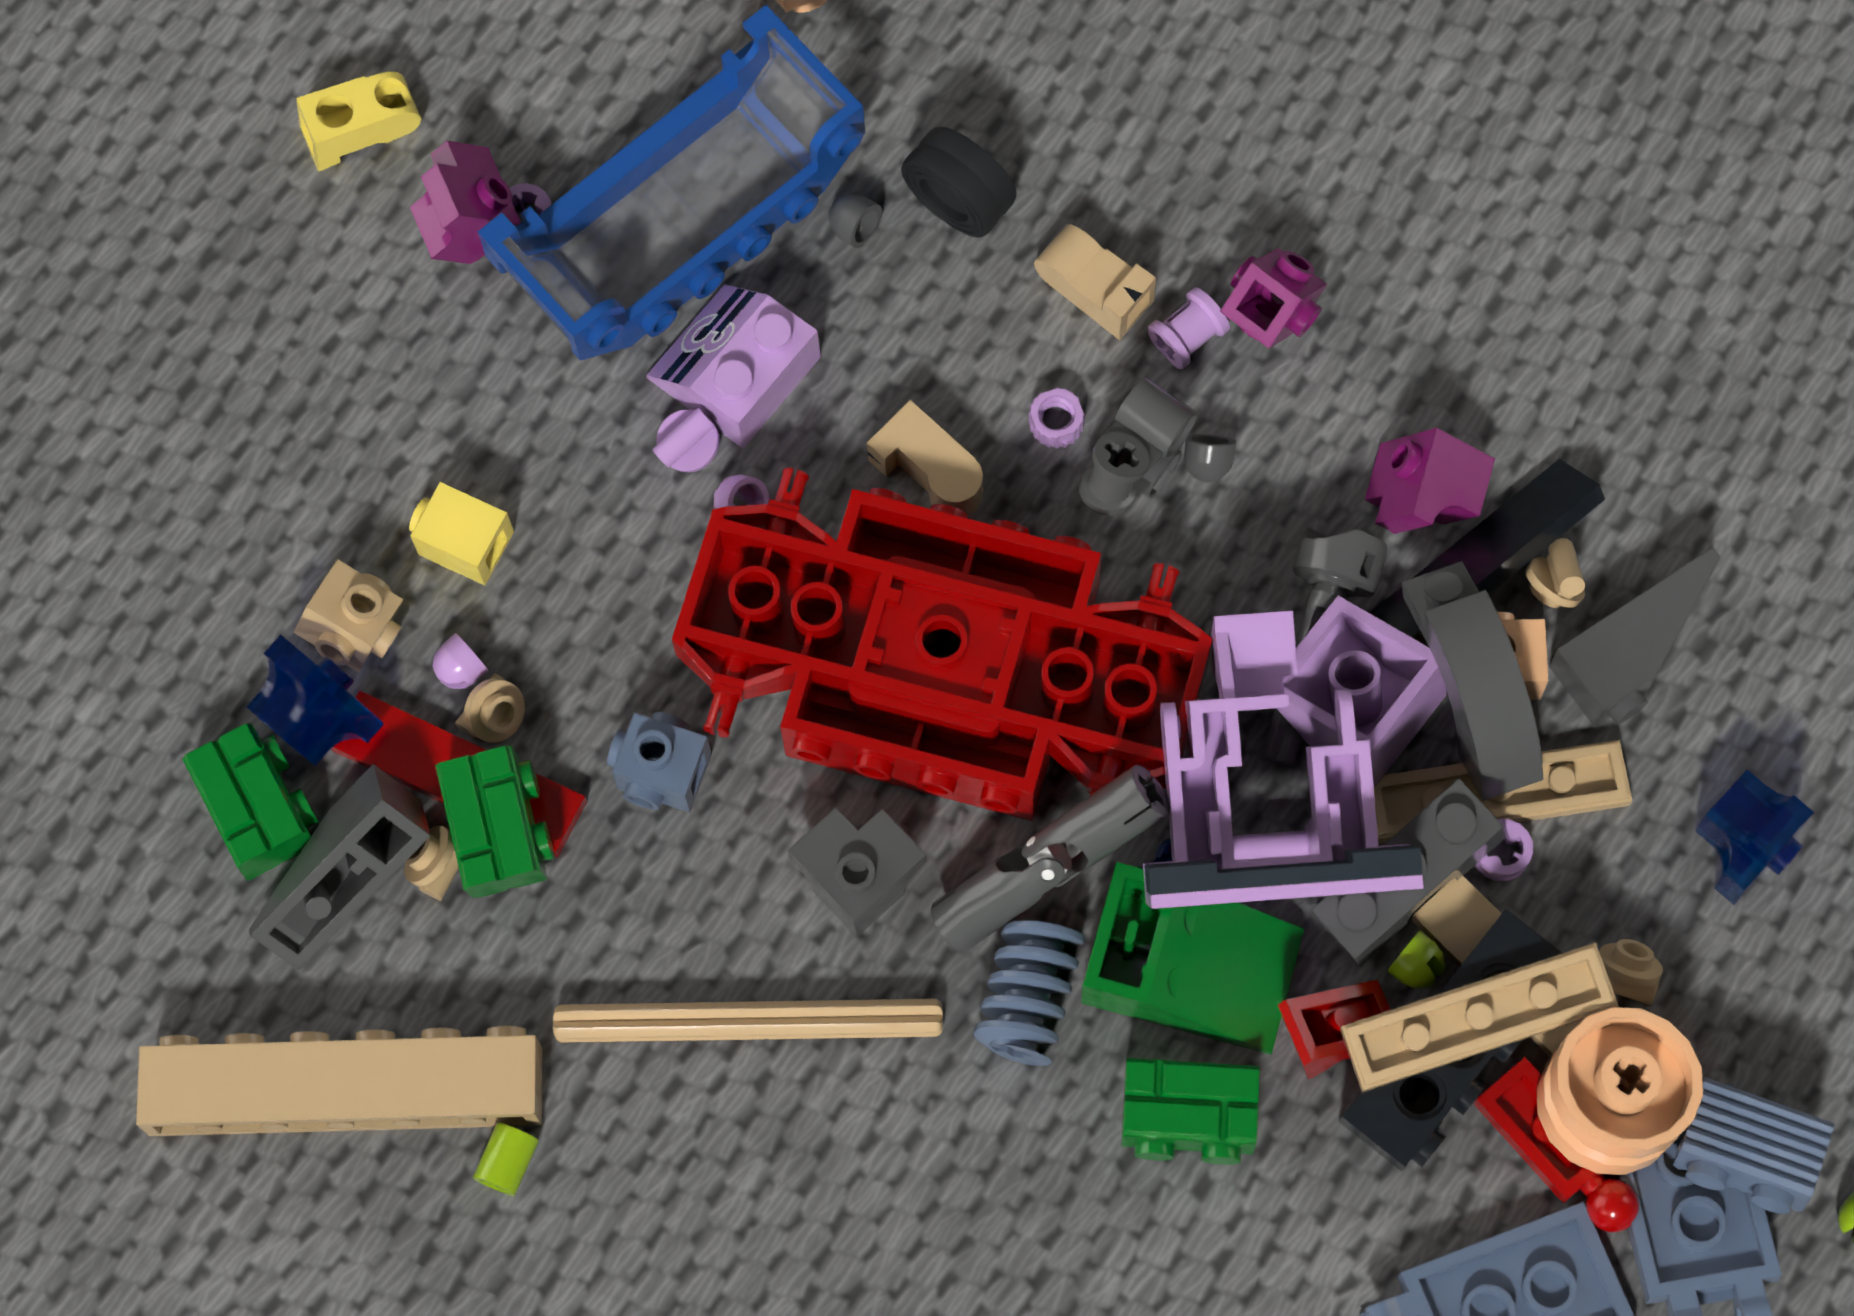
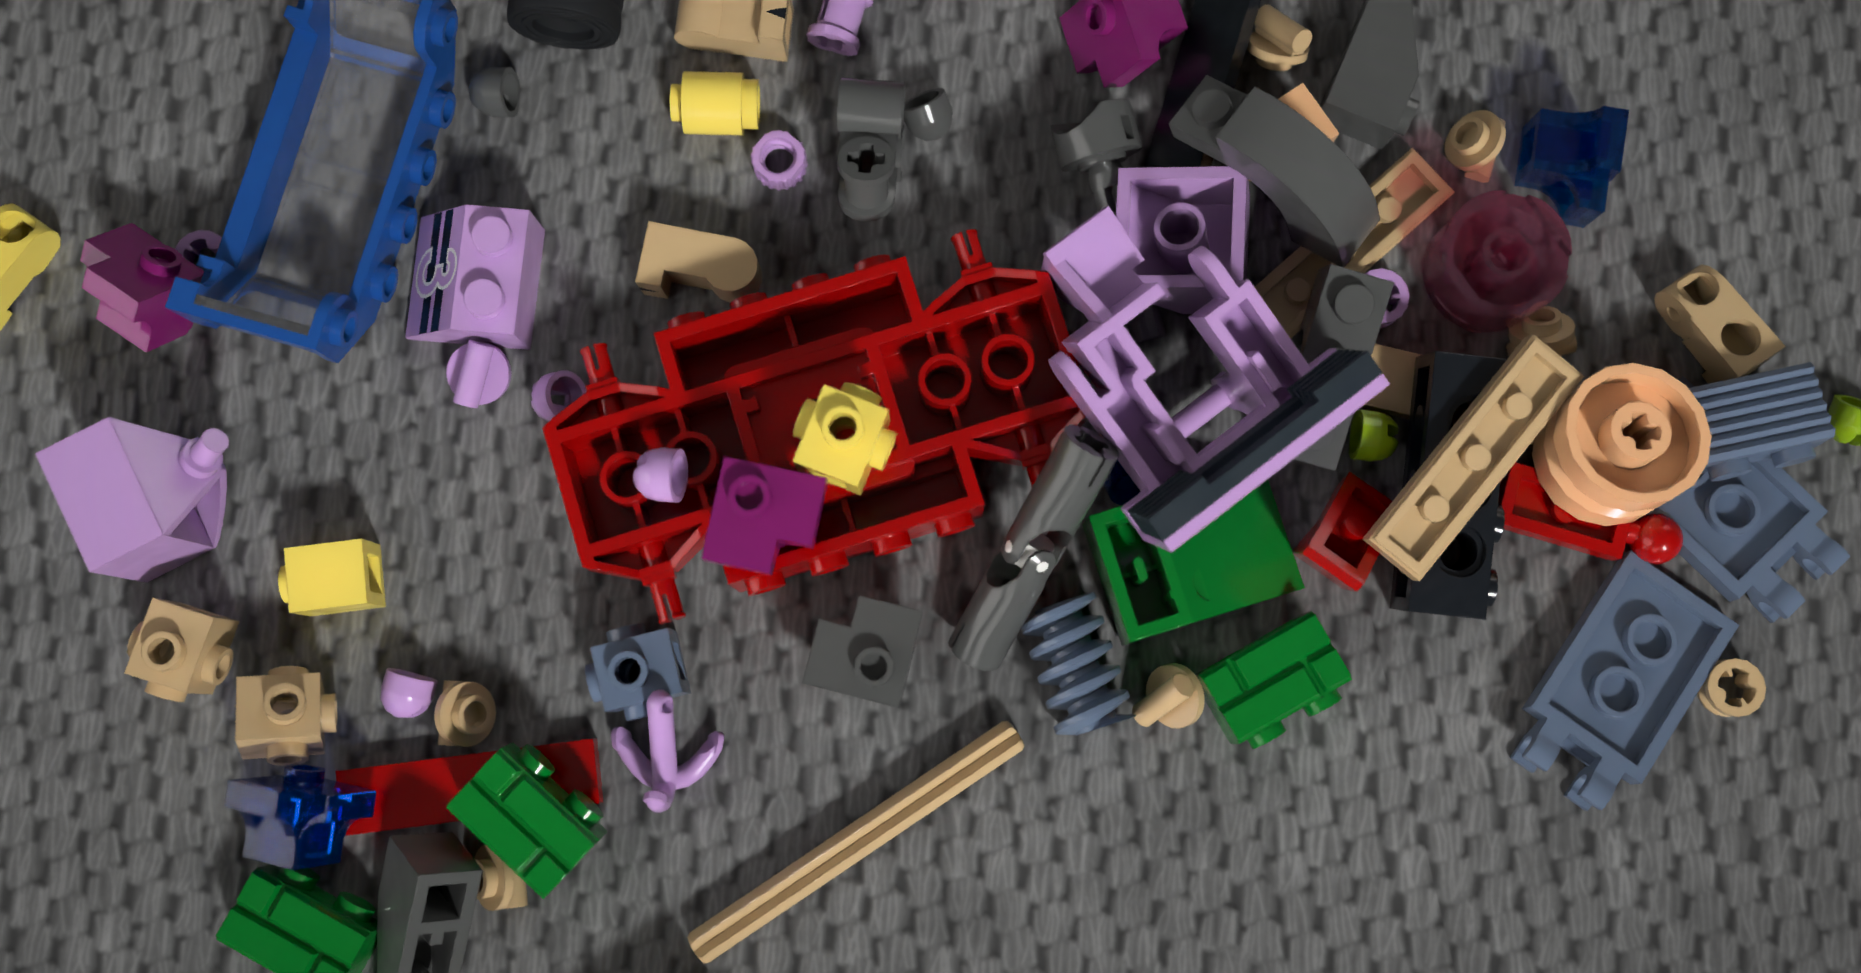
camera: 35 degrees left, 10 degrees up
(303, 513) = (180, 650): none -> tan brick
(357, 370) = (138, 496): none -> lavender piece
(621, 862) = (662, 770): none -> lavender piece
(785, 603) = (662, 474): none -> lavender hinge
(842, 678) = (759, 513): none -> magenta brick
(949, 661) = (850, 460): none -> light yellow brick
(1033, 338) = (715, 103): none -> light yellow brick
(1092, 1071) = (1171, 697): none -> tan plate
(1645, 851) = (1526, 241): none -> clear pink brick
(1680, 772) = (1476, 143): none -> tan plate
(1790, 1053) = (1716, 324): none -> tan leg

